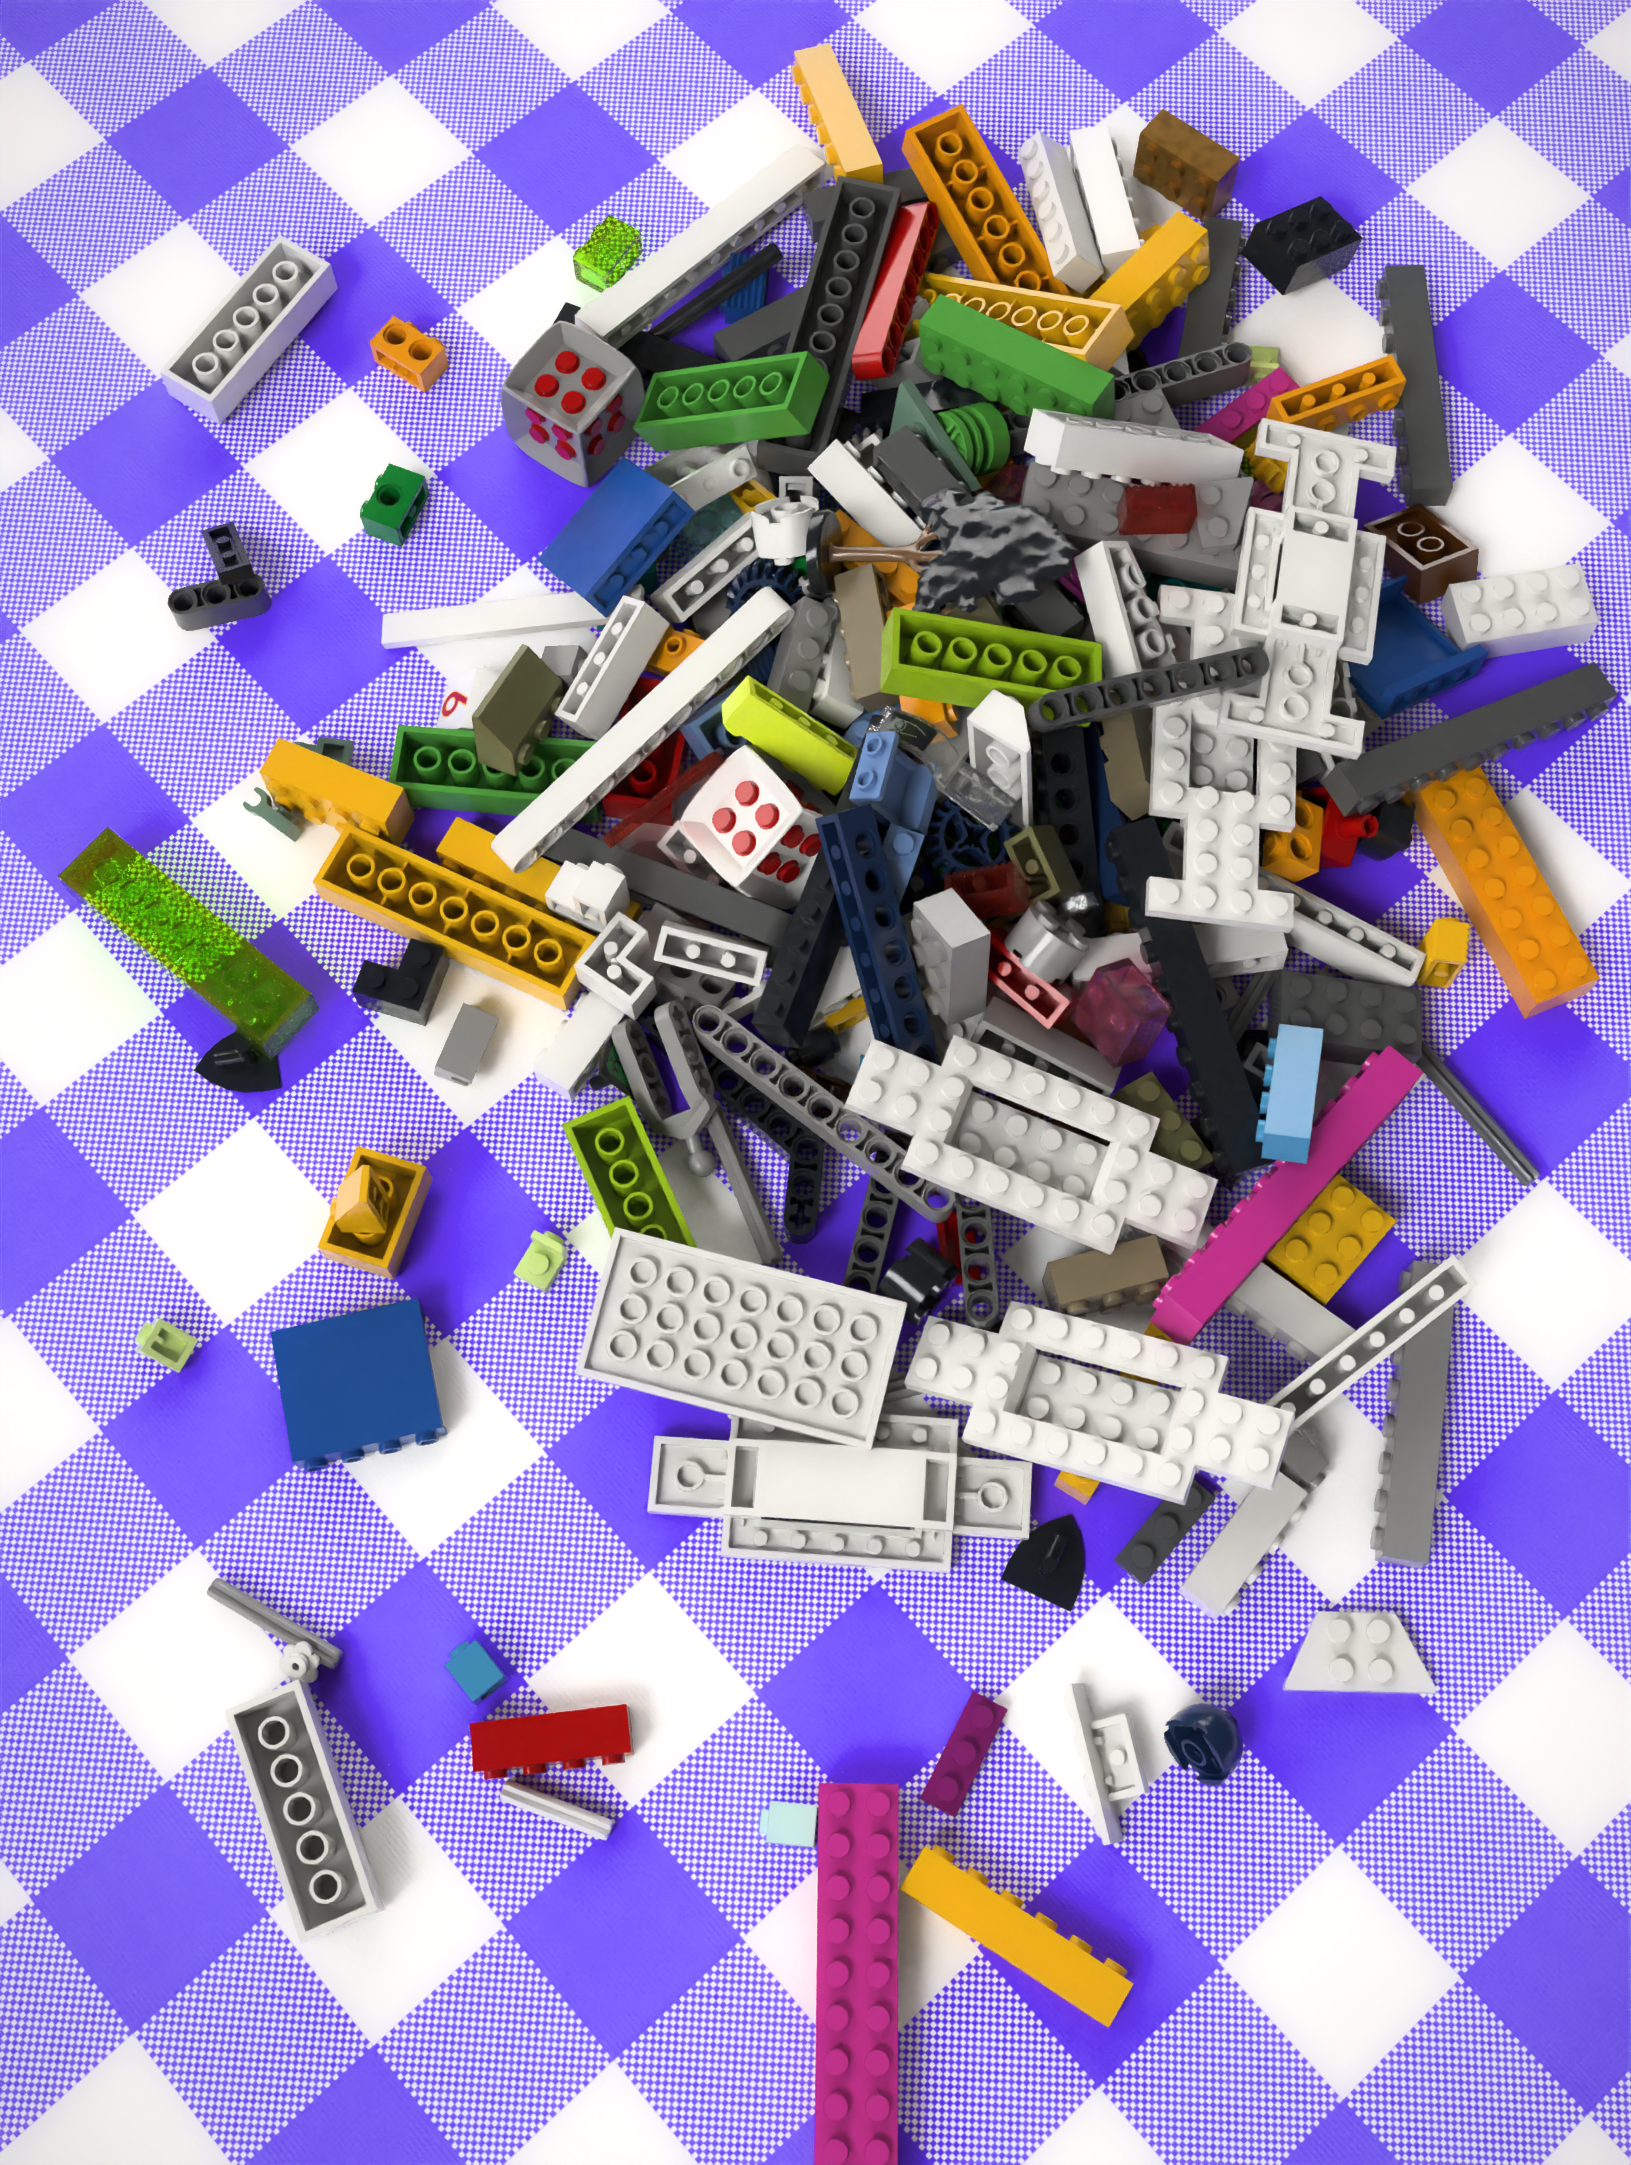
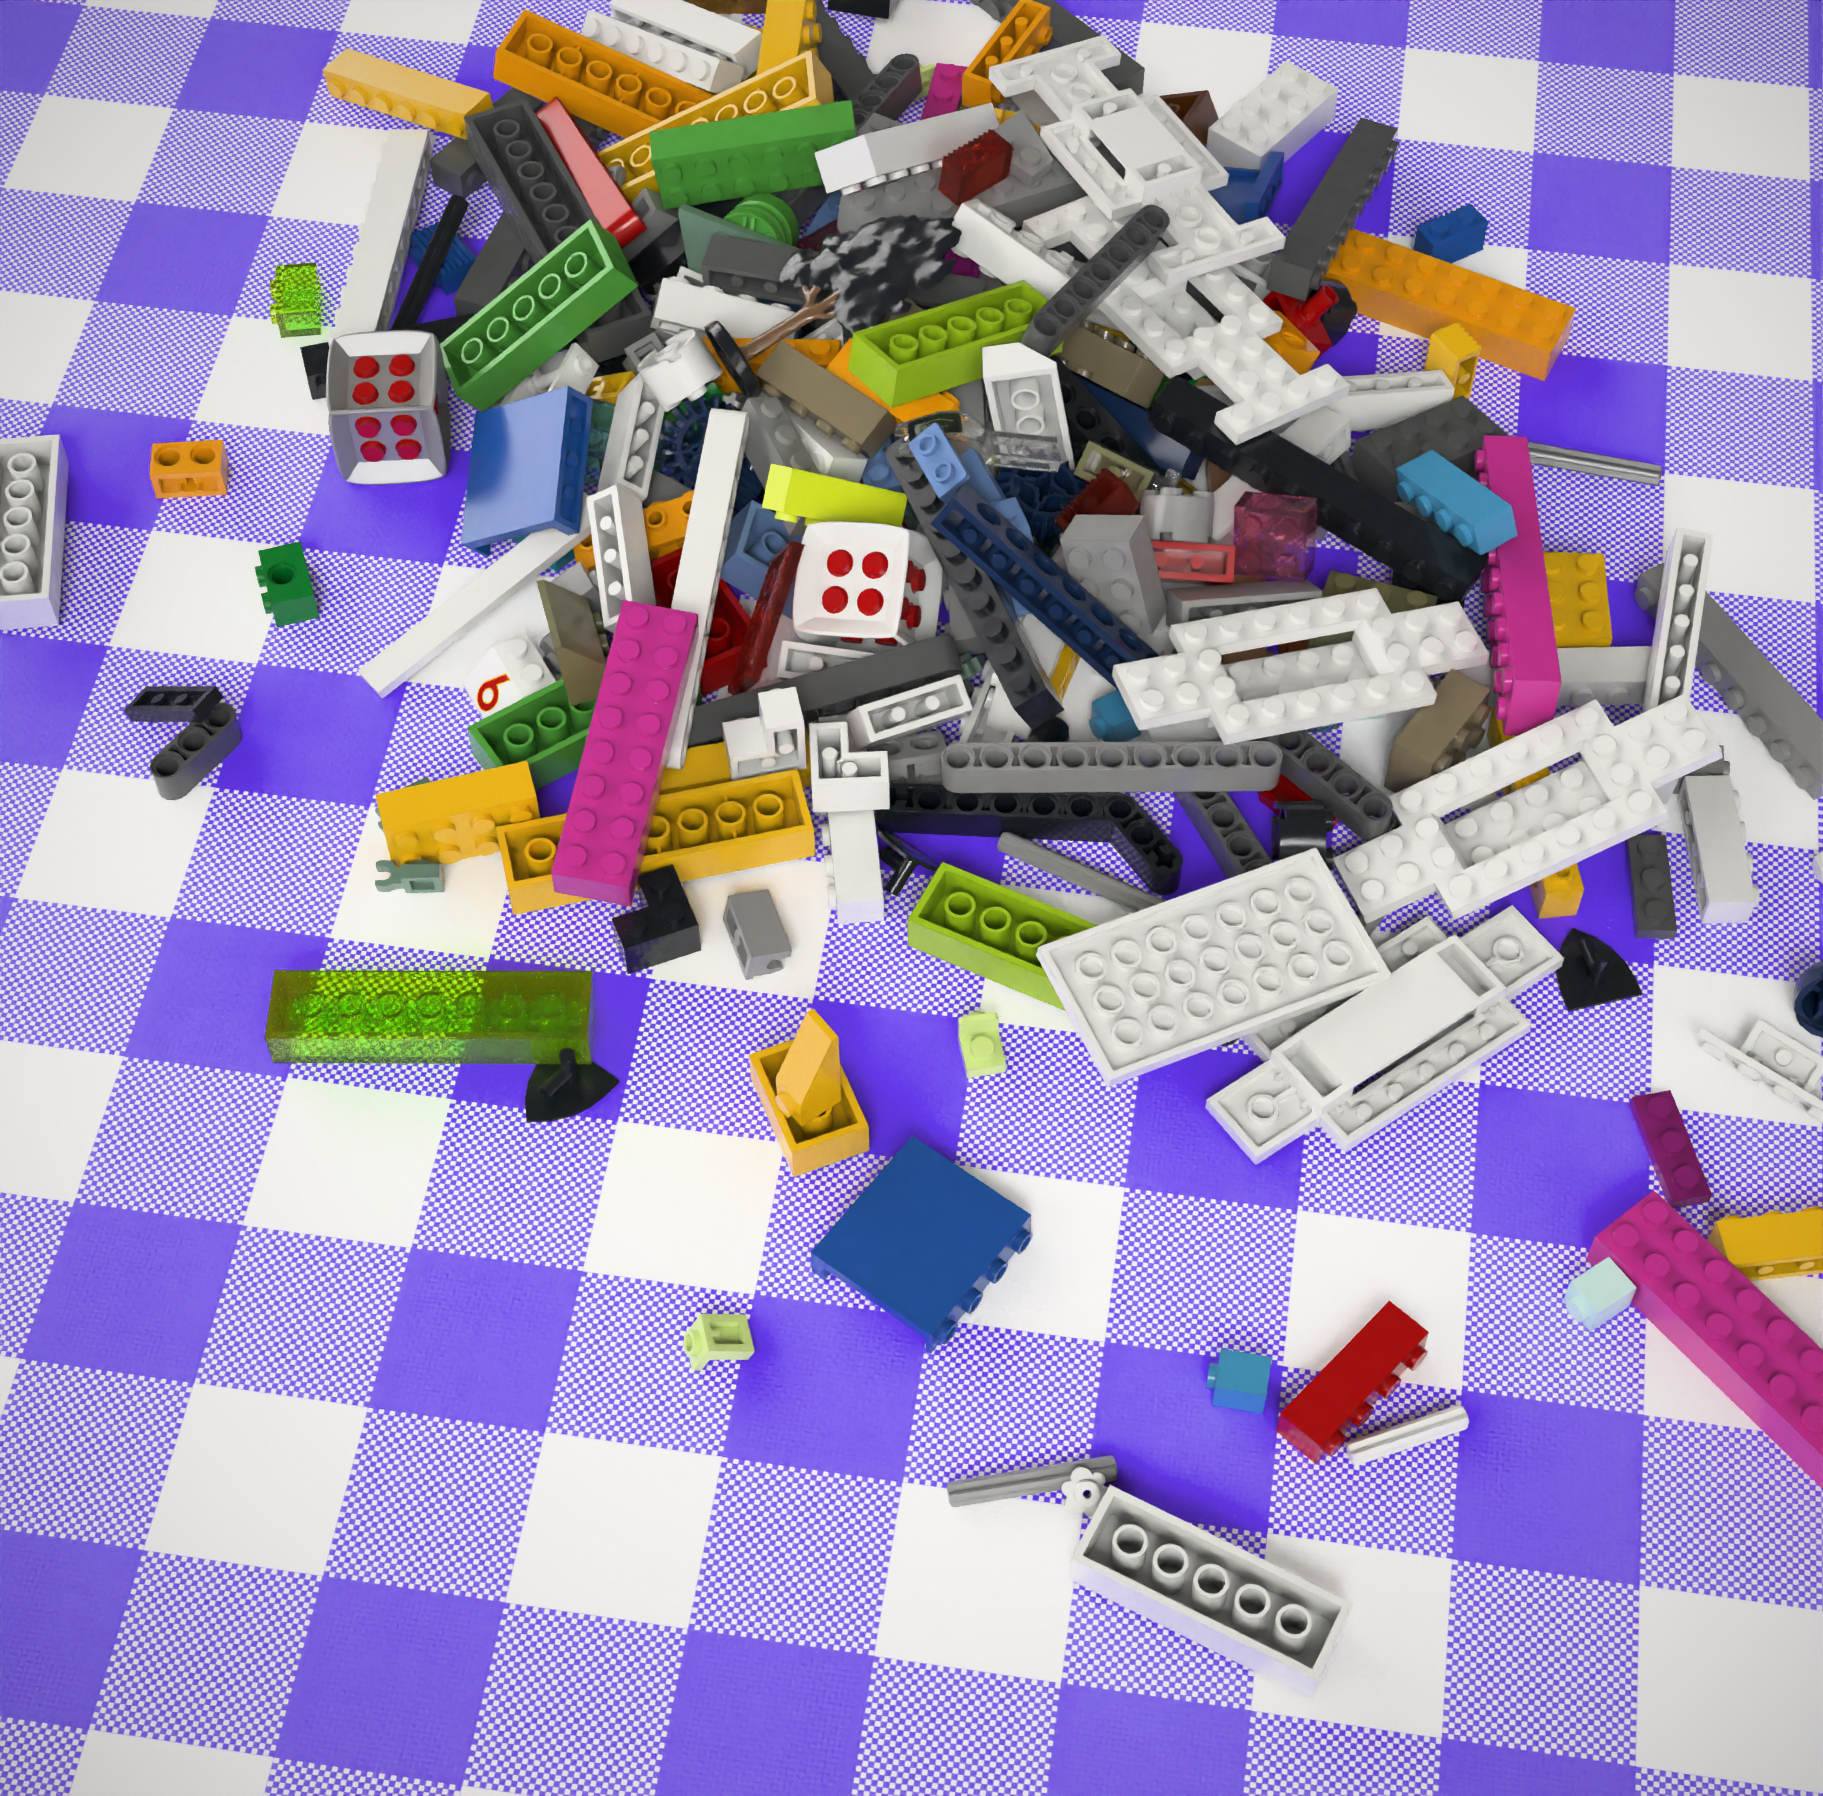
camera: 40 degrees left, 15 degrees down
(467, 836) = (626, 753): none -> dark pink brick
(690, 1073) = (1002, 860): light grey piece -> none
(1565, 830) = (1452, 235): none -> blue brick

